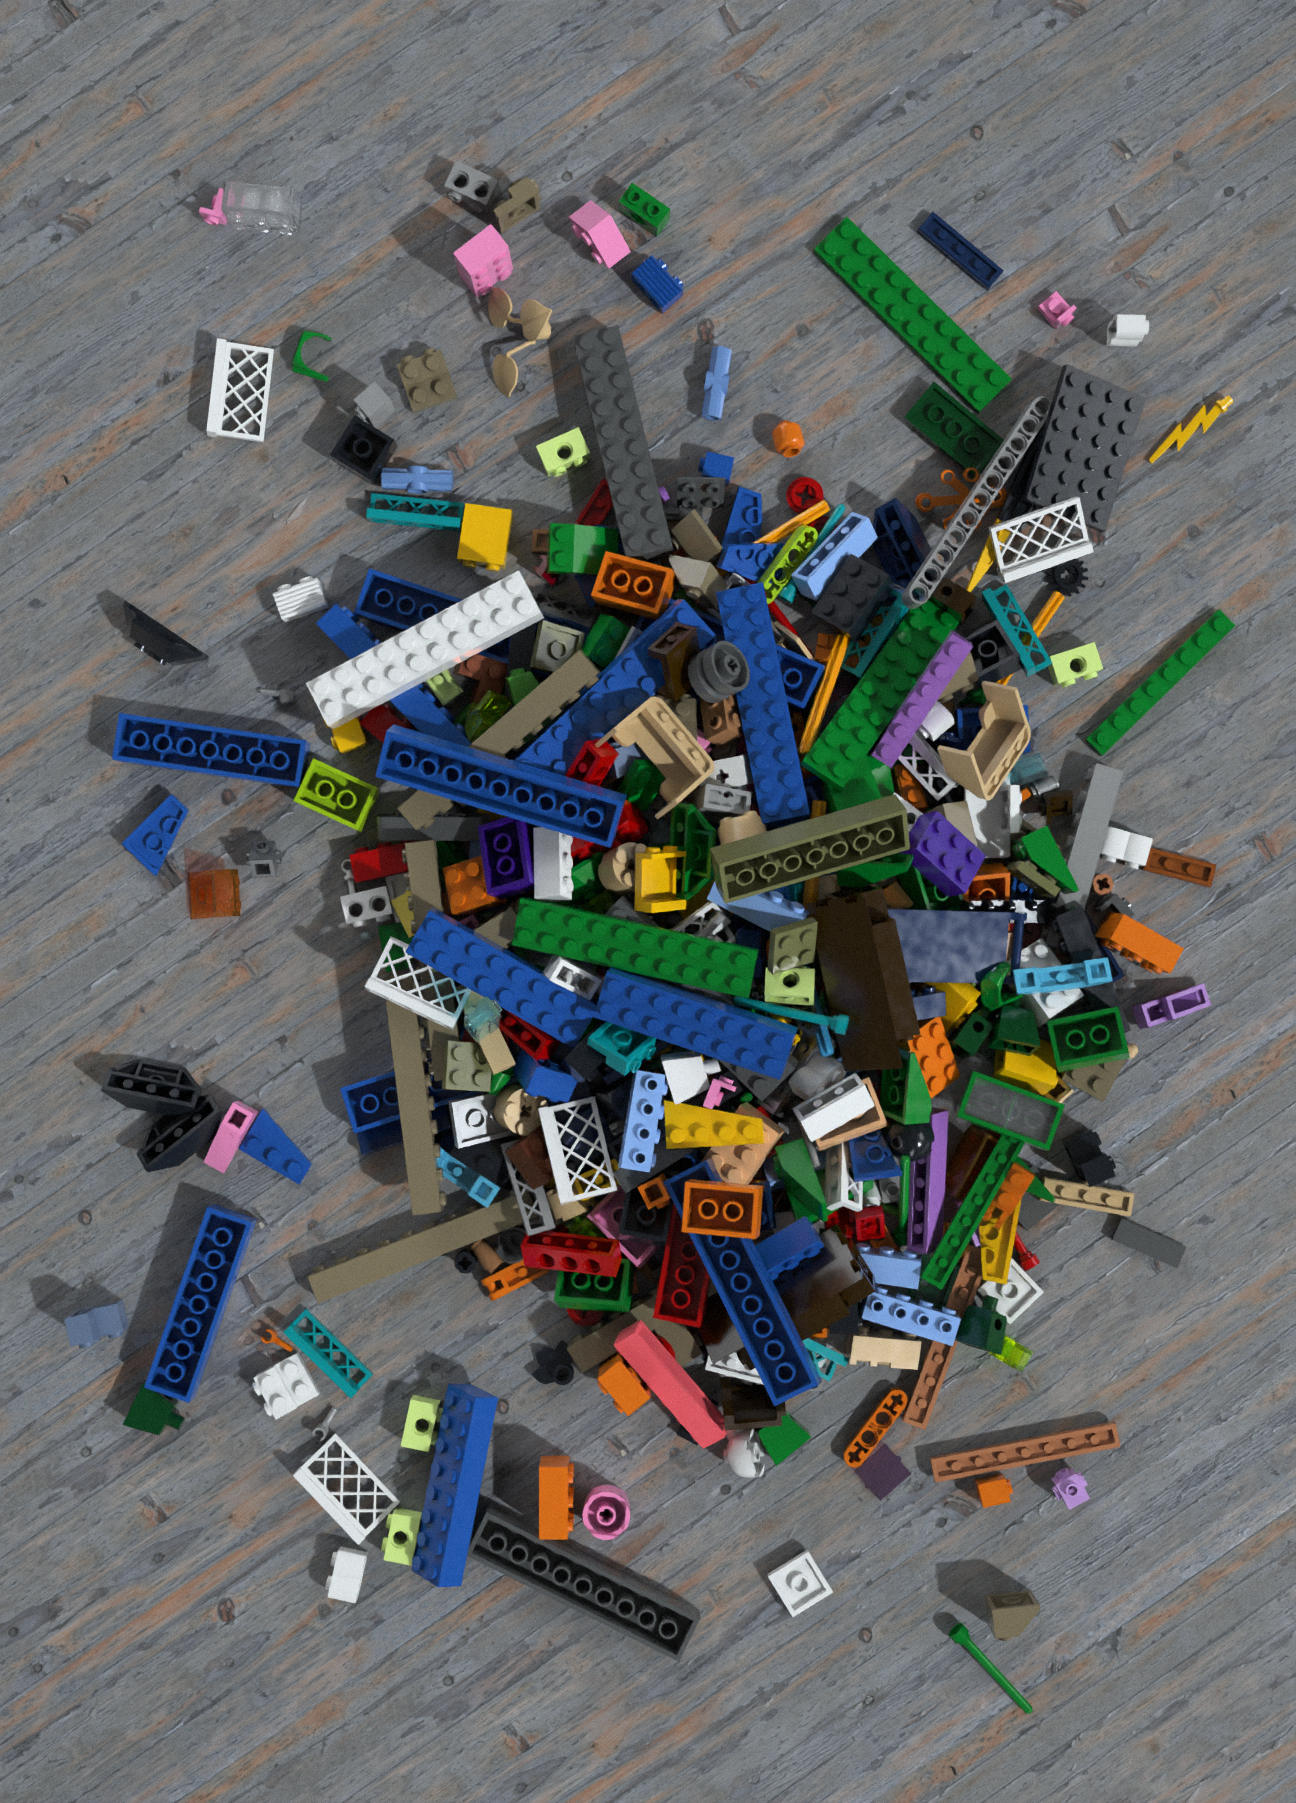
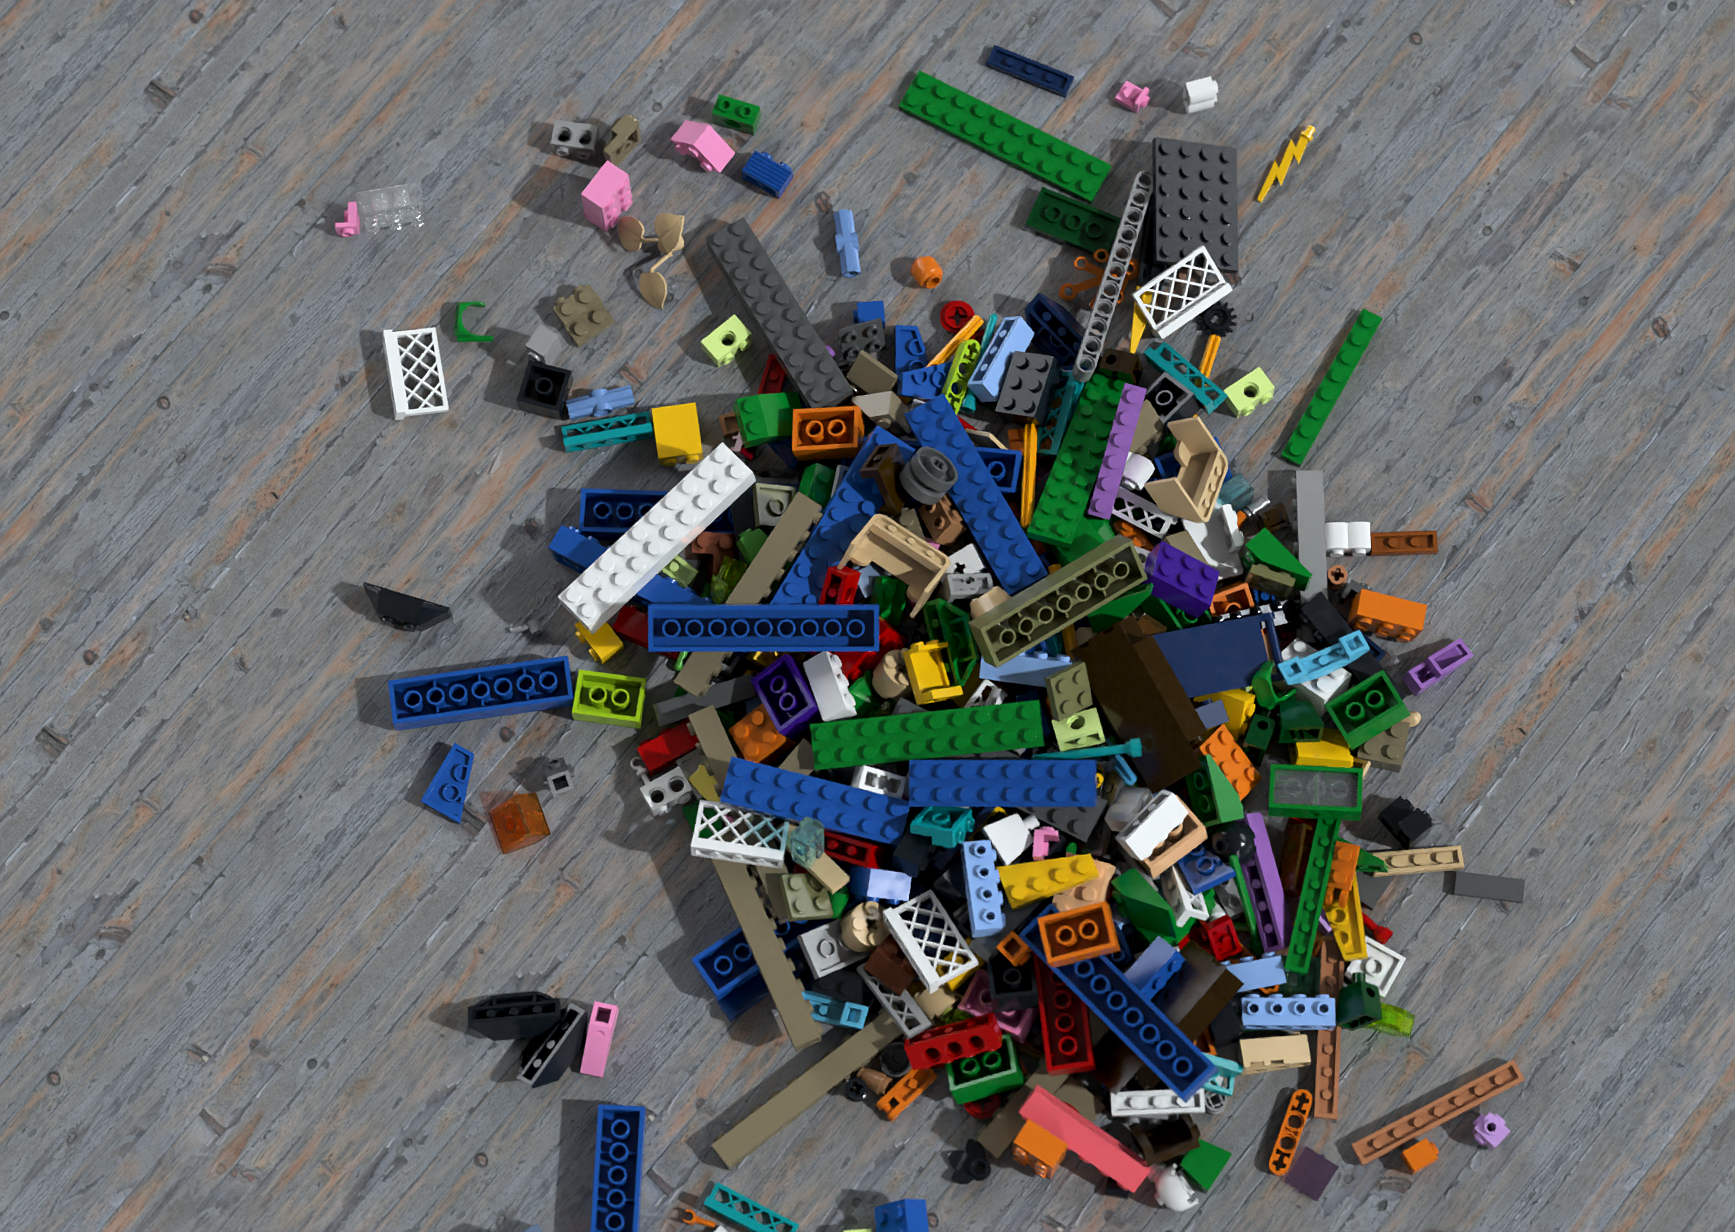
camera: 15 degrees left, 15 degrees down
(275, 1149) = (644, 1041): blue wing -> none
(300, 599) = (524, 537): white brick -> none

